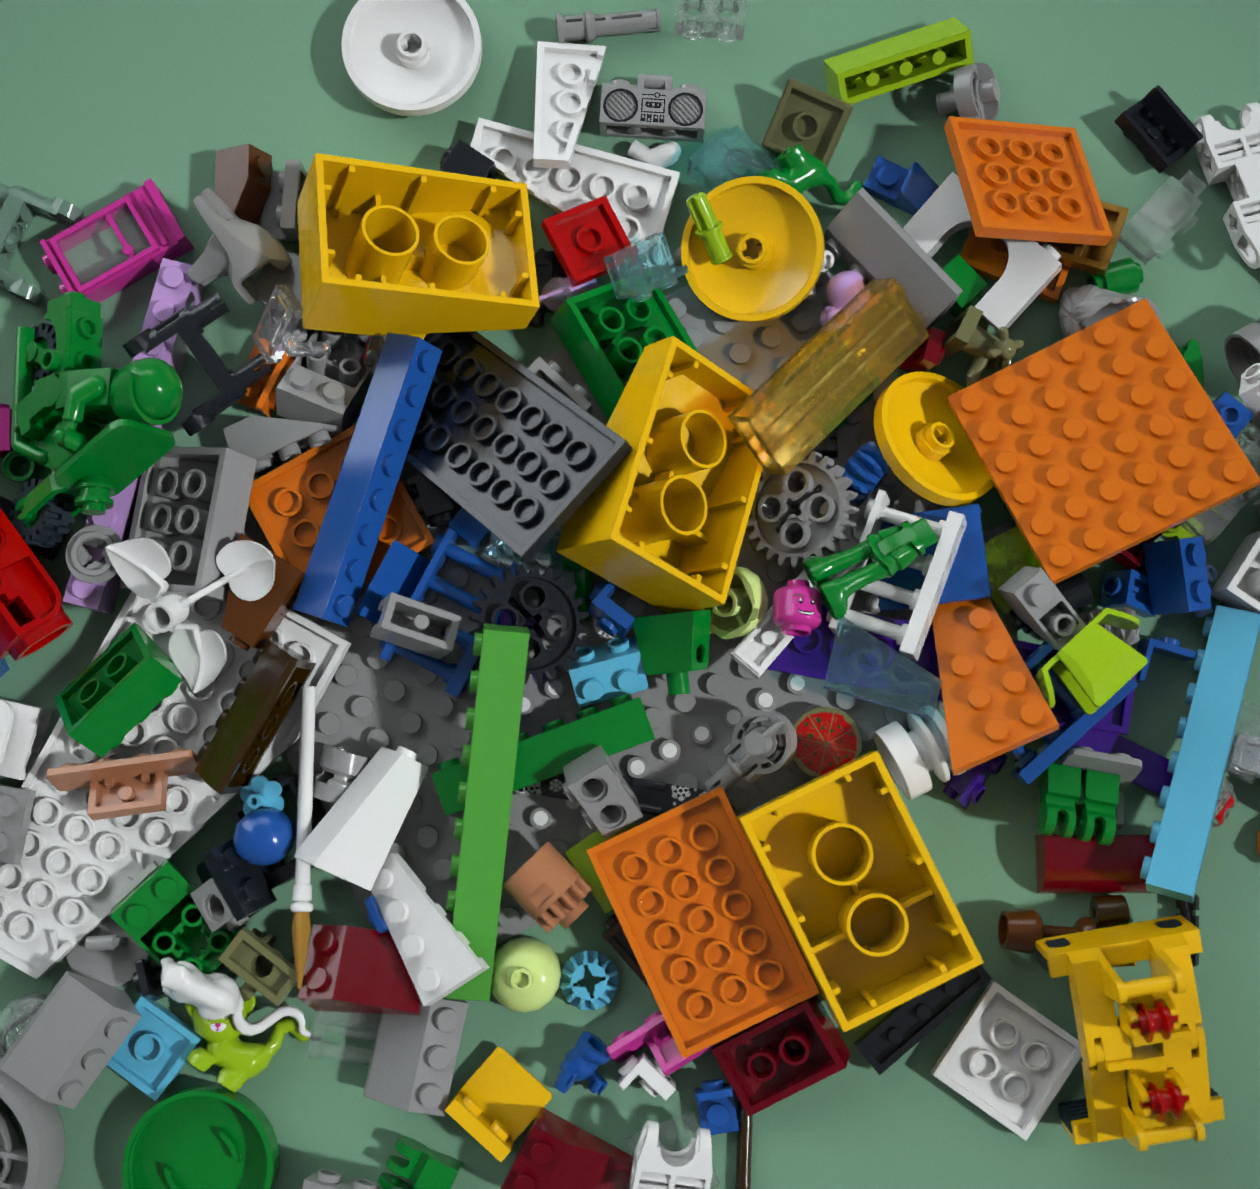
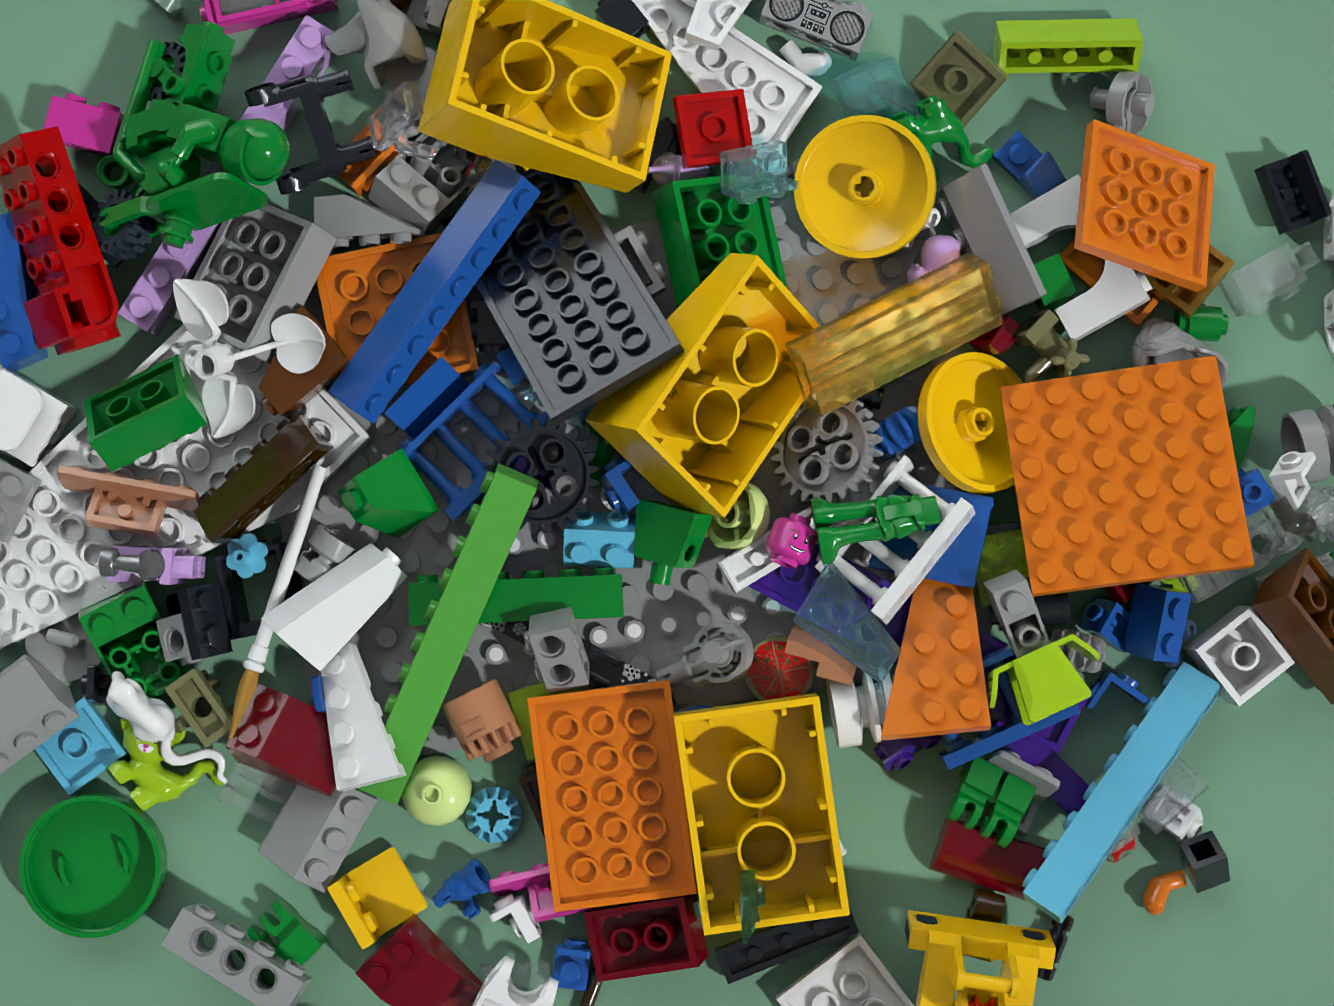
camera: 20 degrees right, 5 degrees up
(79, 558) = (145, 278): light grey gear -> none
(181, 834) = (151, 564): none -> hips
(264, 836) = (238, 591): blue hair -> none
(385, 694) = (389, 496): none -> green slope
(416, 626) = (436, 444): light grey brick -> none
(708, 228) = (829, 154): lime axle -> none
(876, 716) = (831, 664): none -> nougat slope
(880, 978) = (751, 899): none -> clear green plate
(1023, 927) = (904, 895): reddish brown piece -> none

